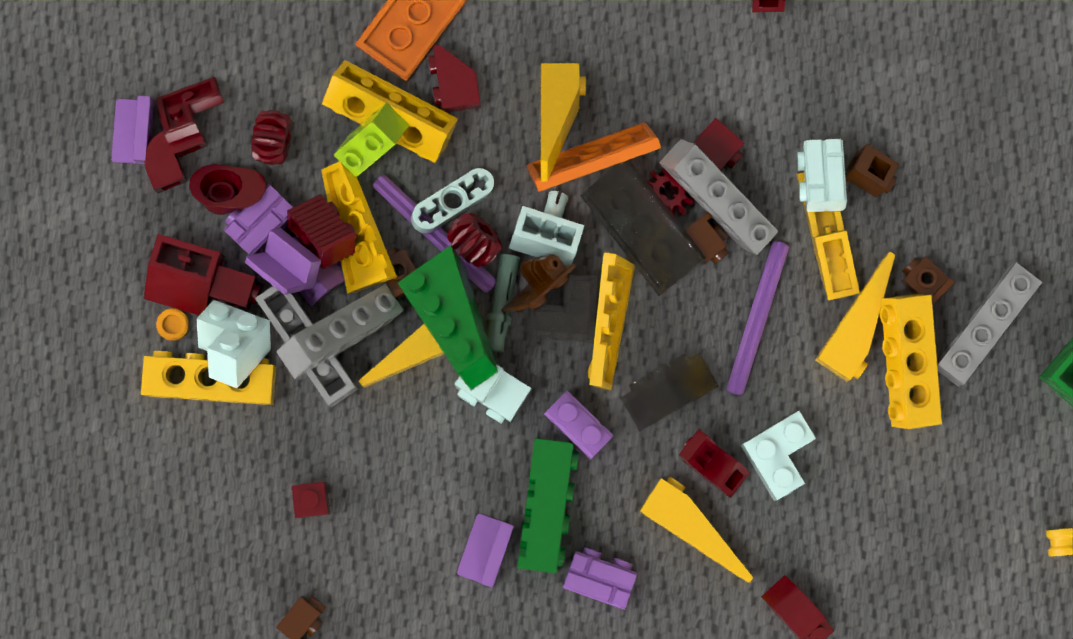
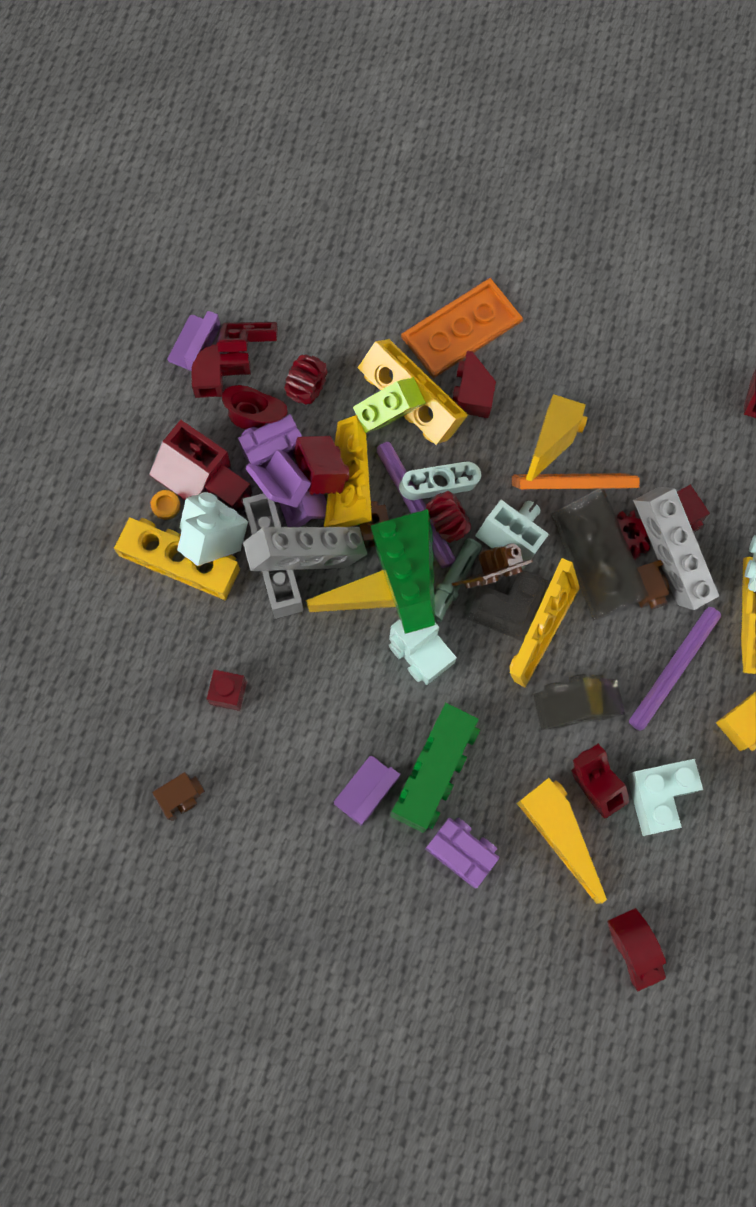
camera: 15 degrees right, 10 degrees down
(578, 425) = (487, 705): medium lavender brick -> none

